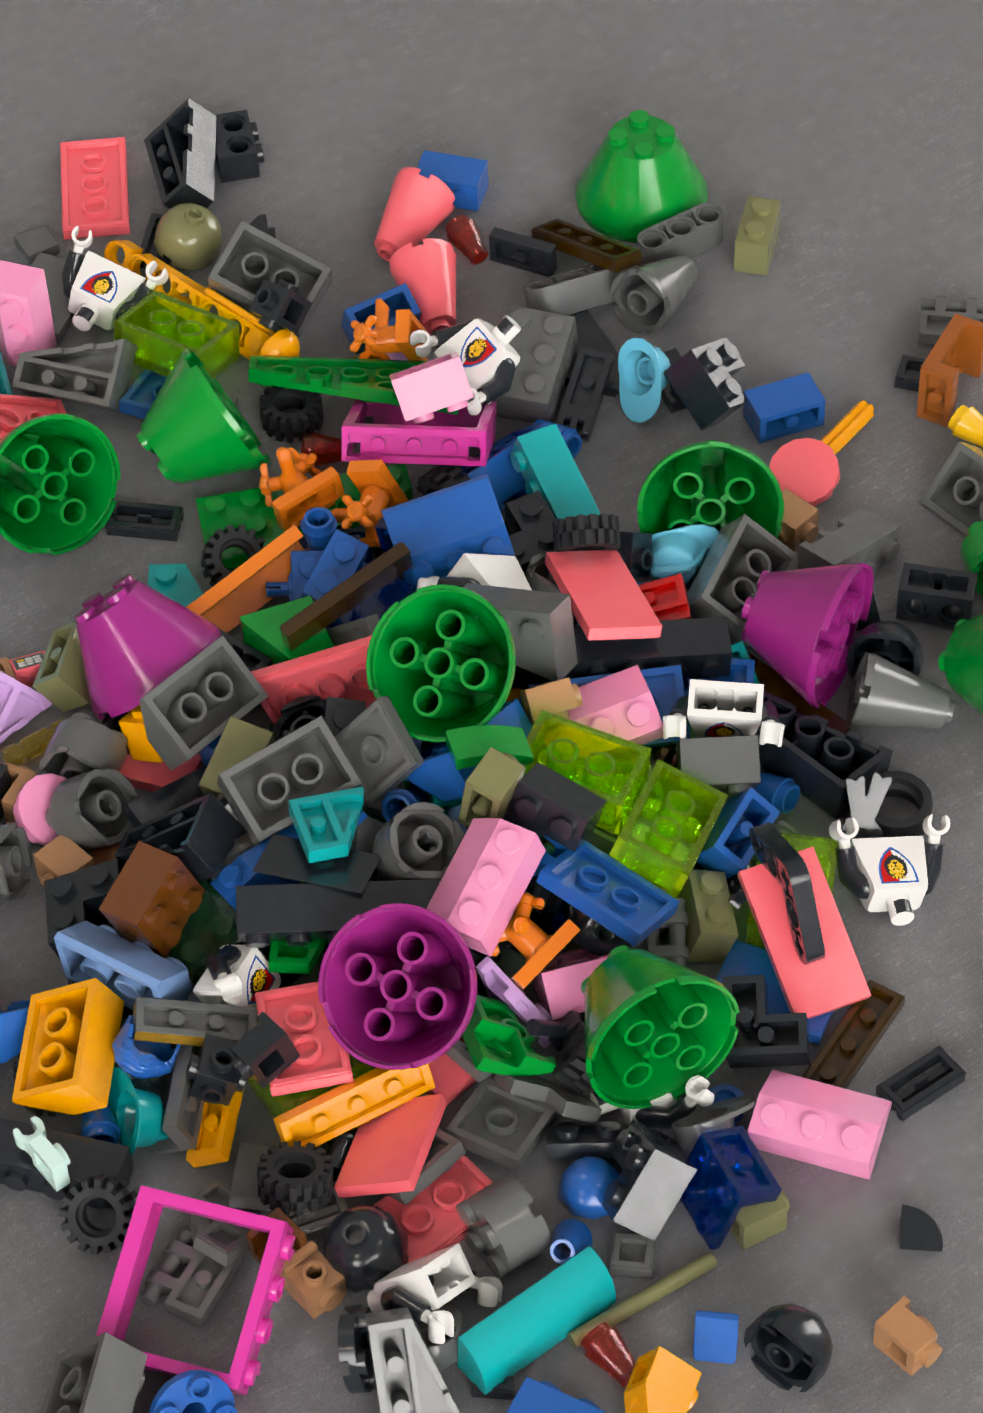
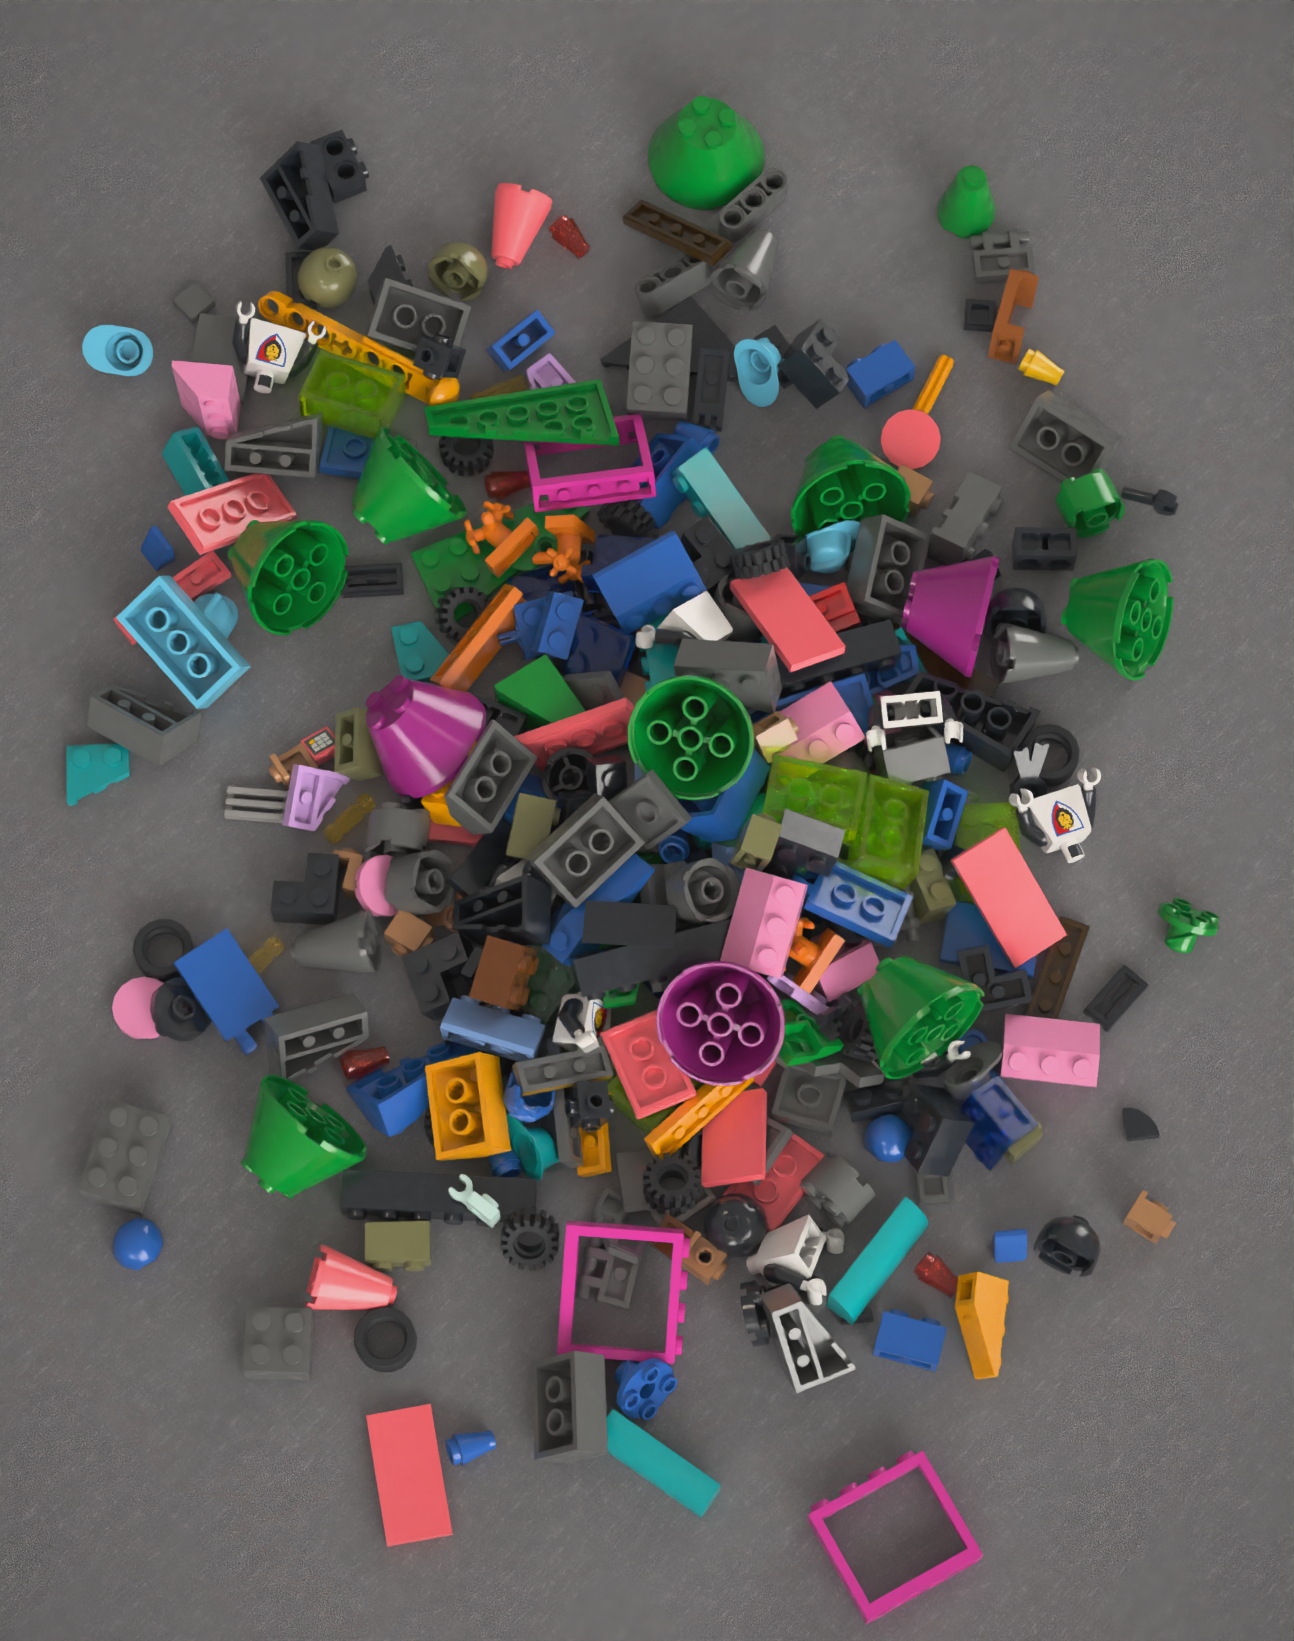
camera: 15 degrees left, 20 degrees up
(94, 187) = (225, 229): coral tile -> none
(263, 1052) = (626, 1092): black brick -> none
(318, 528) = (531, 580): blue cone -> none
(327, 822) = (628, 888): teal wing -> none
(336, 244) = (458, 269): none -> olive cylinder
(346, 596) = (582, 661): dark brown tile -> none
(384, 337) = (533, 373): orange piece -> none
(431, 278) = (554, 296): coral cone -> none
(432, 388) = (595, 430): bright pink slope -> none
(463, 176) = (541, 171): blue brick -> none
(471, 744) = (743, 801): green slope -> none
(484, 354) = (623, 387): torso -> none
(522, 252) = (620, 243): black plate -> none
(572, 1233) = (887, 1190): blue cone -> none
(646, 1297) = (948, 1223): olive bar -> none
(757, 235) = (819, 193): olive brick -> none
(793, 875) = (1000, 867): black beam -> none
(925, 260) = (967, 204): none -> green cone

